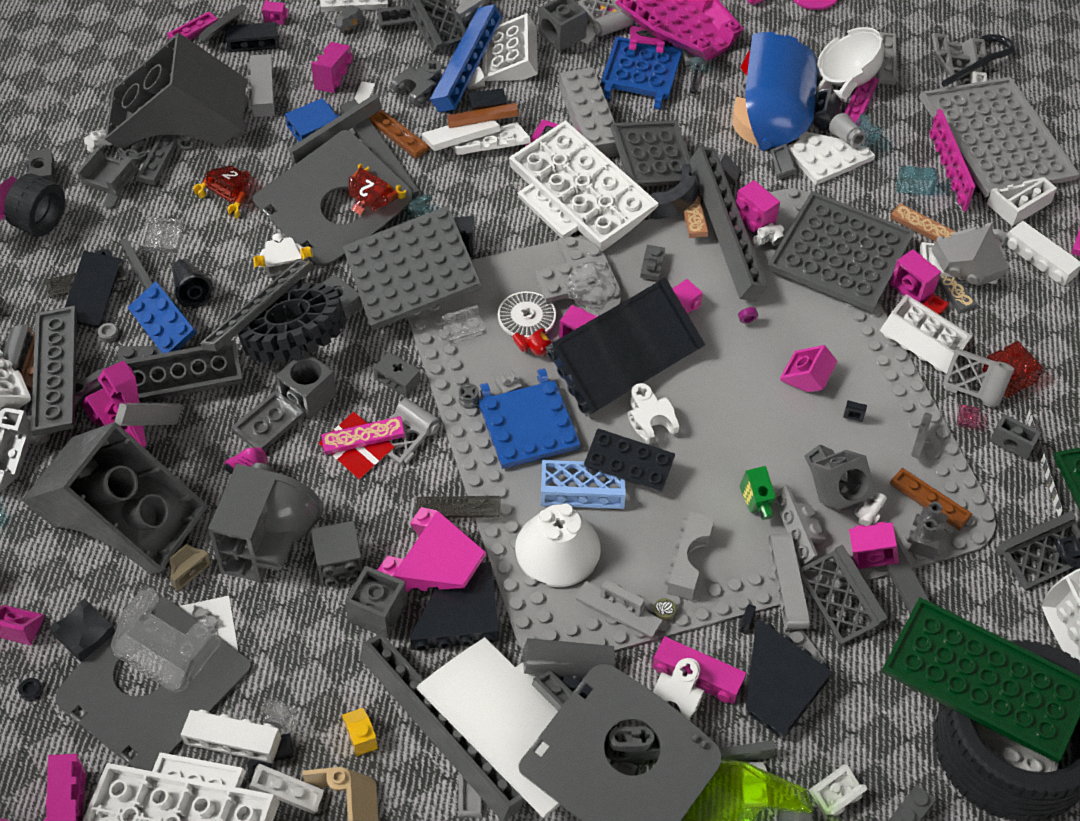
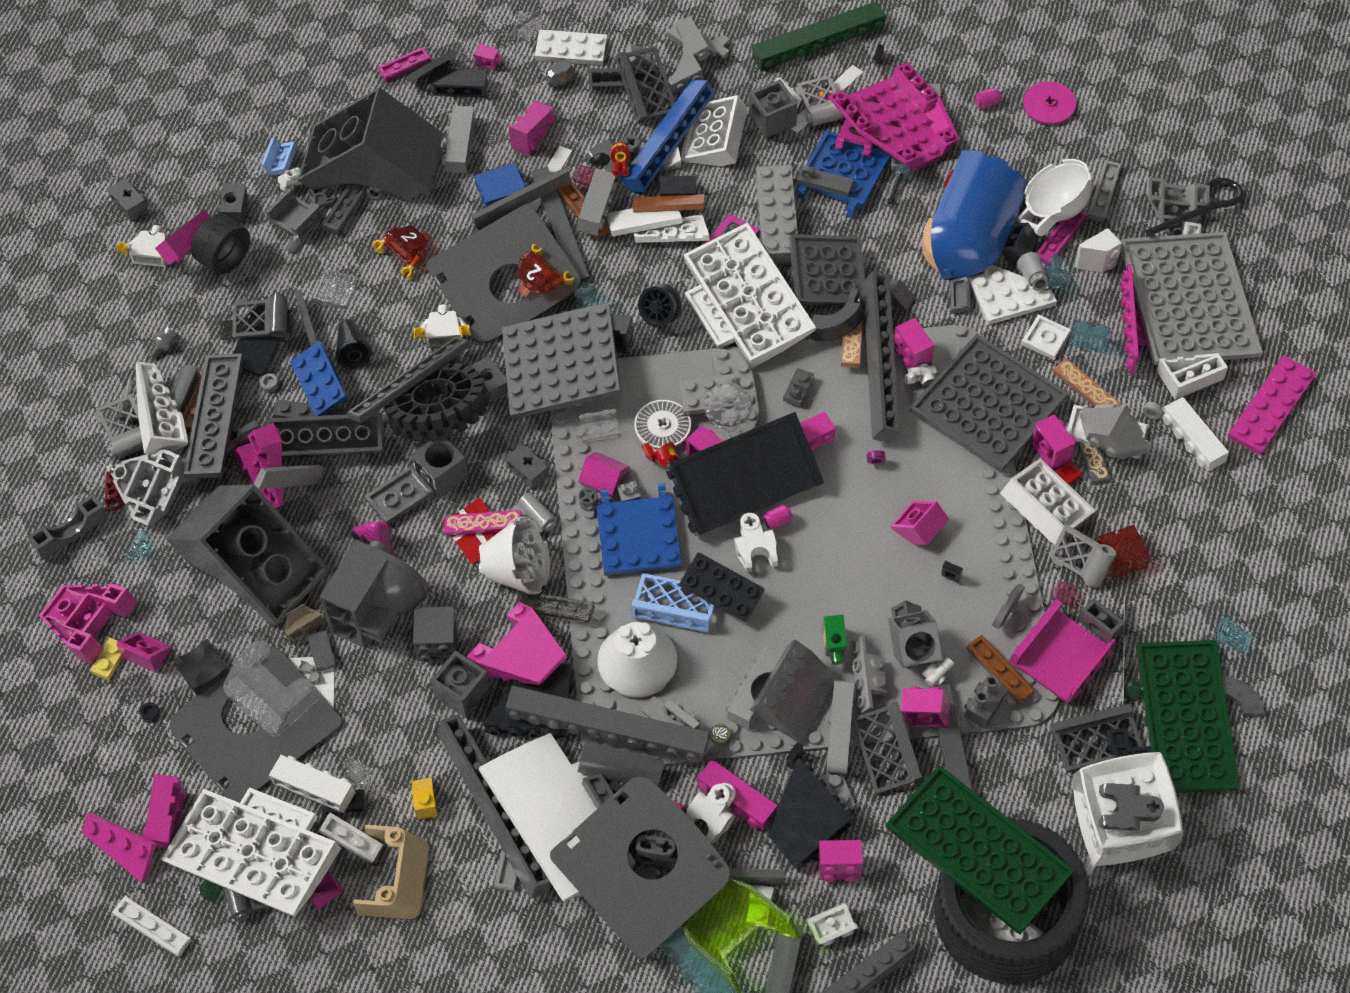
camera: 15 degrees right, 5 degrees up
(81, 122) = (279, 157): none -> light blue bracket
(104, 265) = (275, 317): none -> dark grey piece
(214, 592) = (321, 651): none -> dark grey tile
(393, 102) = (583, 175): none -> clear pink plate
(407, 462) = (517, 557): none -> white cone
(412, 123) = (596, 202): none -> light grey brick
(427, 77) = (620, 157): none -> red piece
(477, 369) = (602, 473): none -> dark pink slope
(497, 204) = (660, 305): none -> black wheel
(545, 617) = (607, 724): none -> dark grey brick
(627, 78) = (824, 181): none -> dark grey hinge
(666, 385) = (777, 517): none -> dark pink brick
(732, 551) = (794, 691): none -> flat silver slope
(829, 719) = (840, 860): none -> dark pink brick
(874, 188) = (1046, 337): none -> white tile
(903, 107) = (1099, 252): none -> white slope
(986, 475) = (1060, 654): none -> dark pink panel
(1067, 498) = (1133, 690): none -> clear green tile

